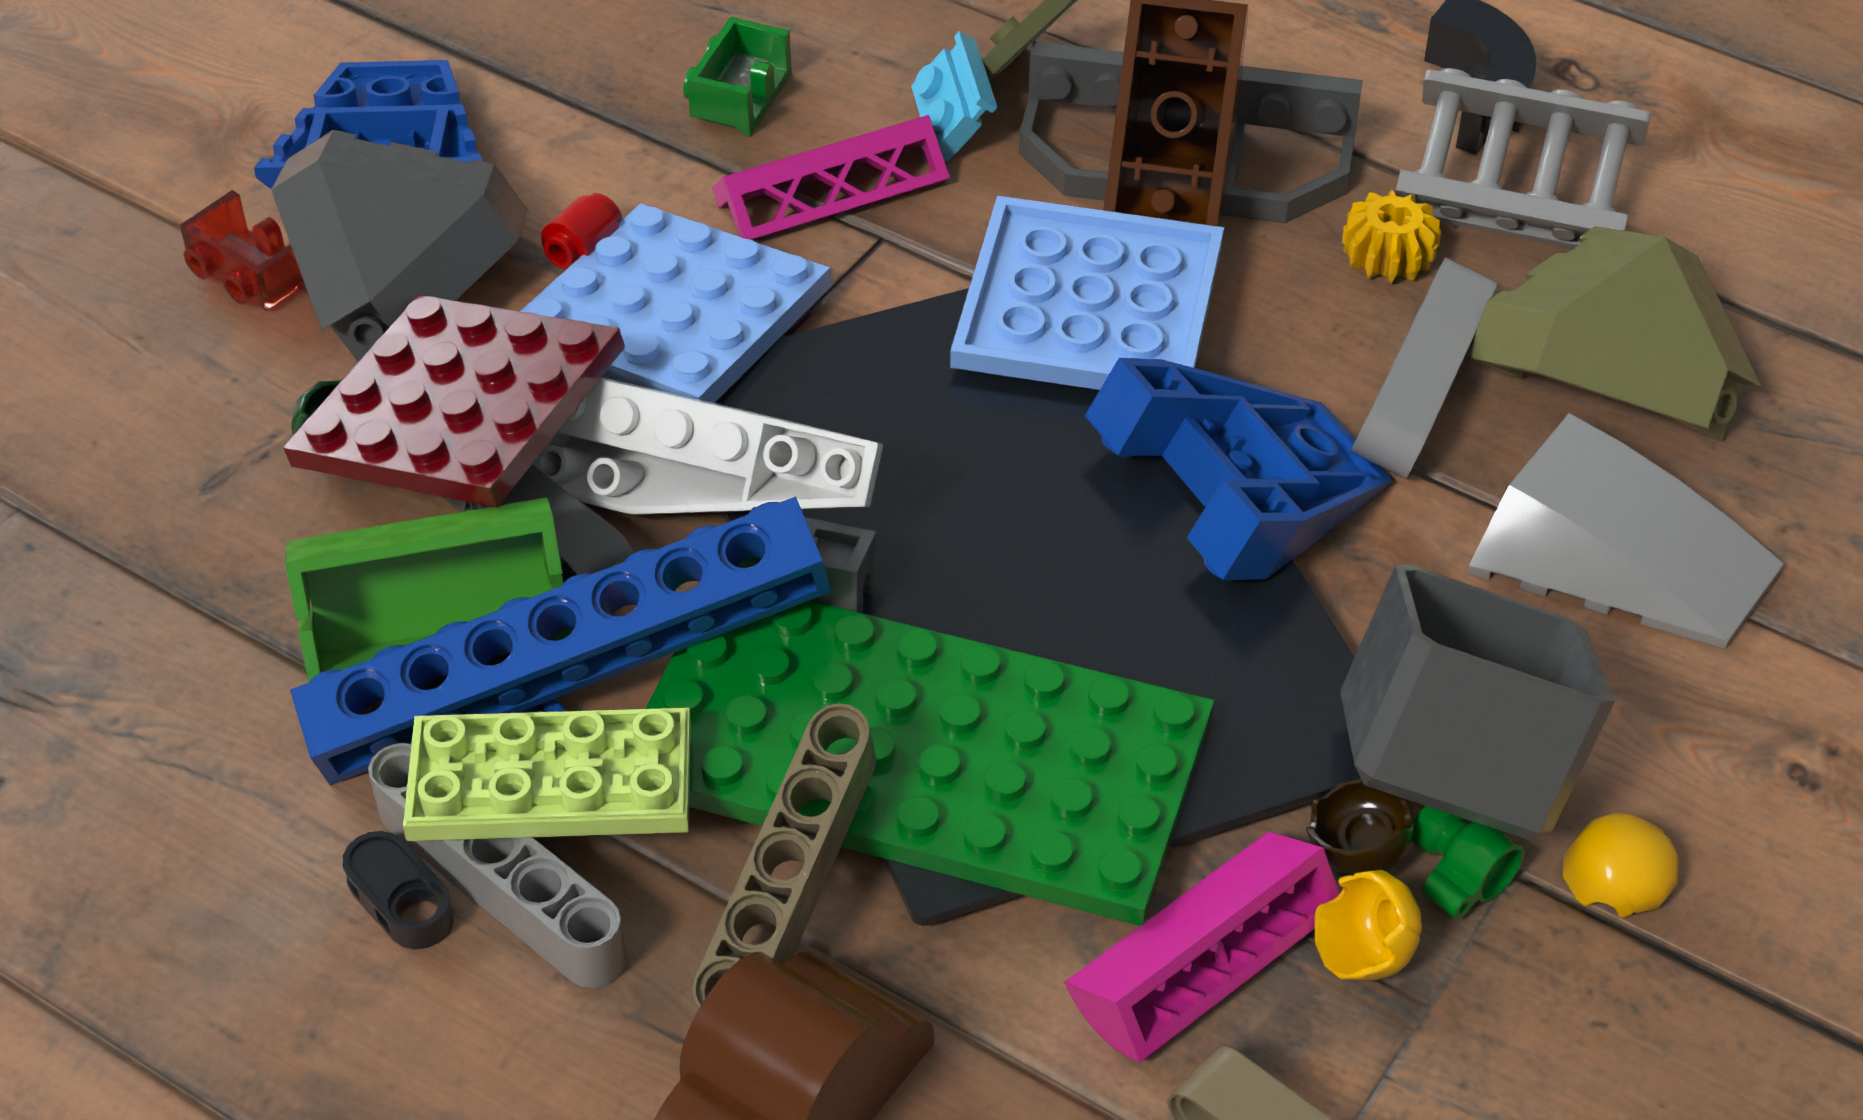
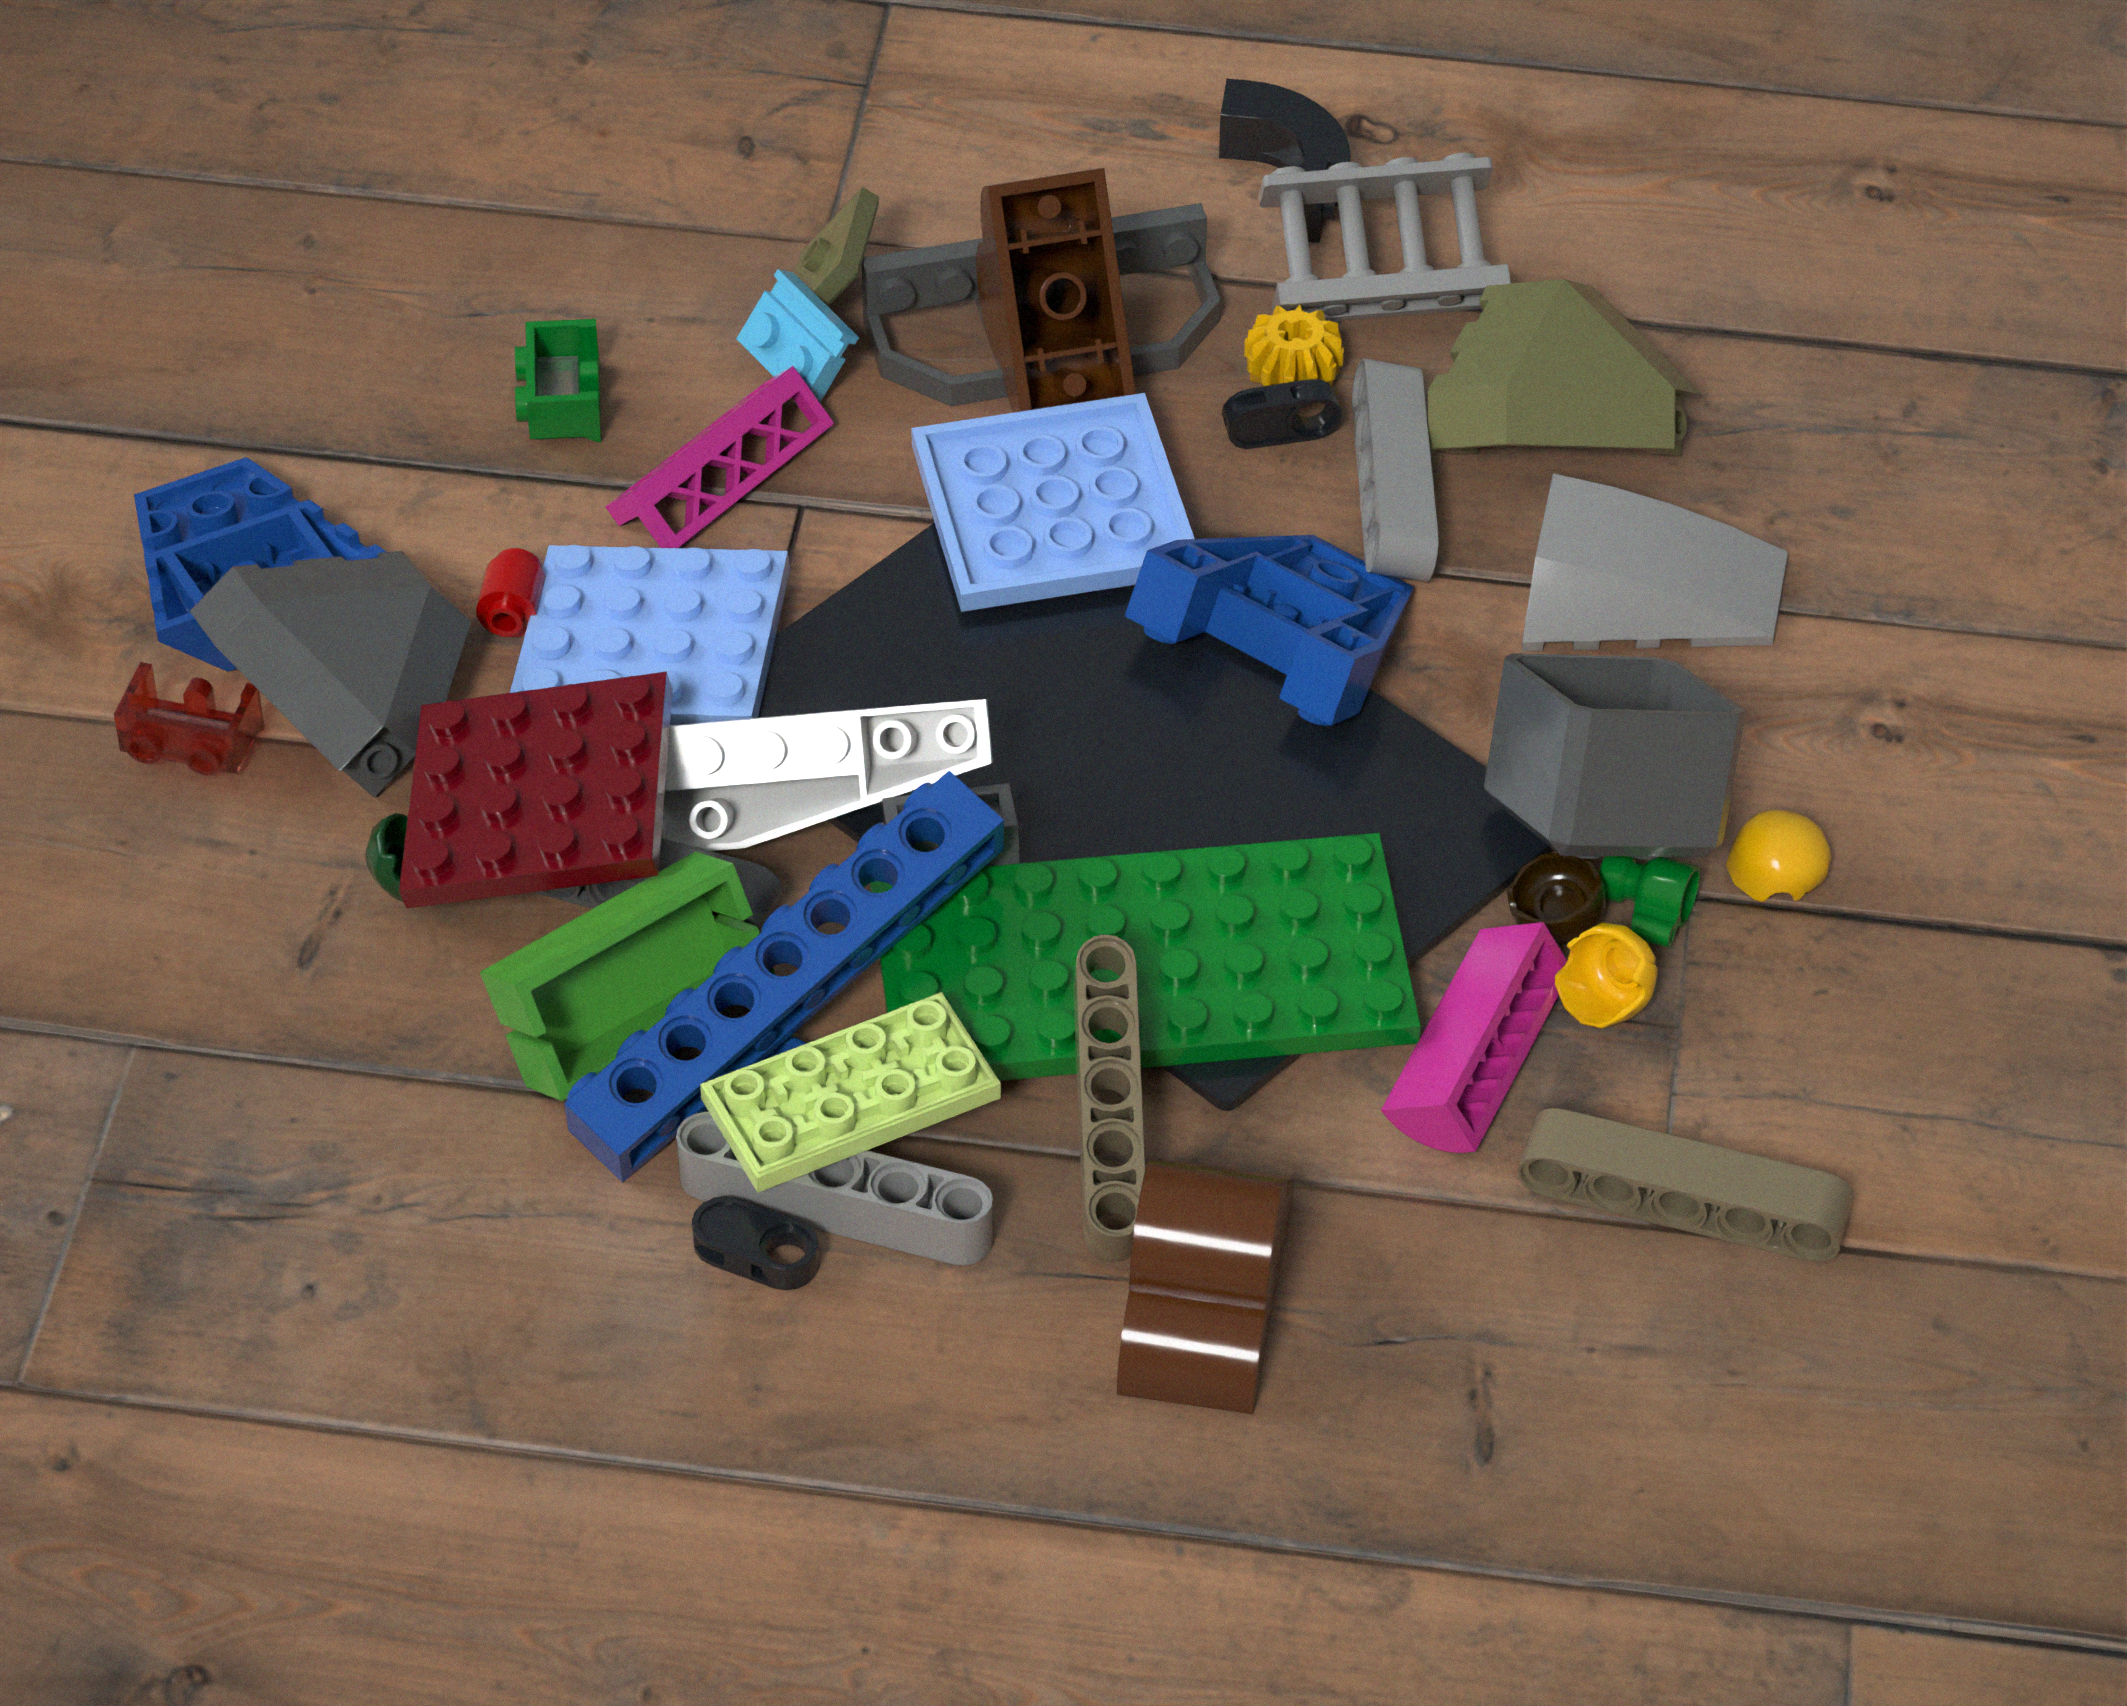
camera: 25 degrees left, 0 degrees up
(1337, 286) = (1270, 418): none -> black piece

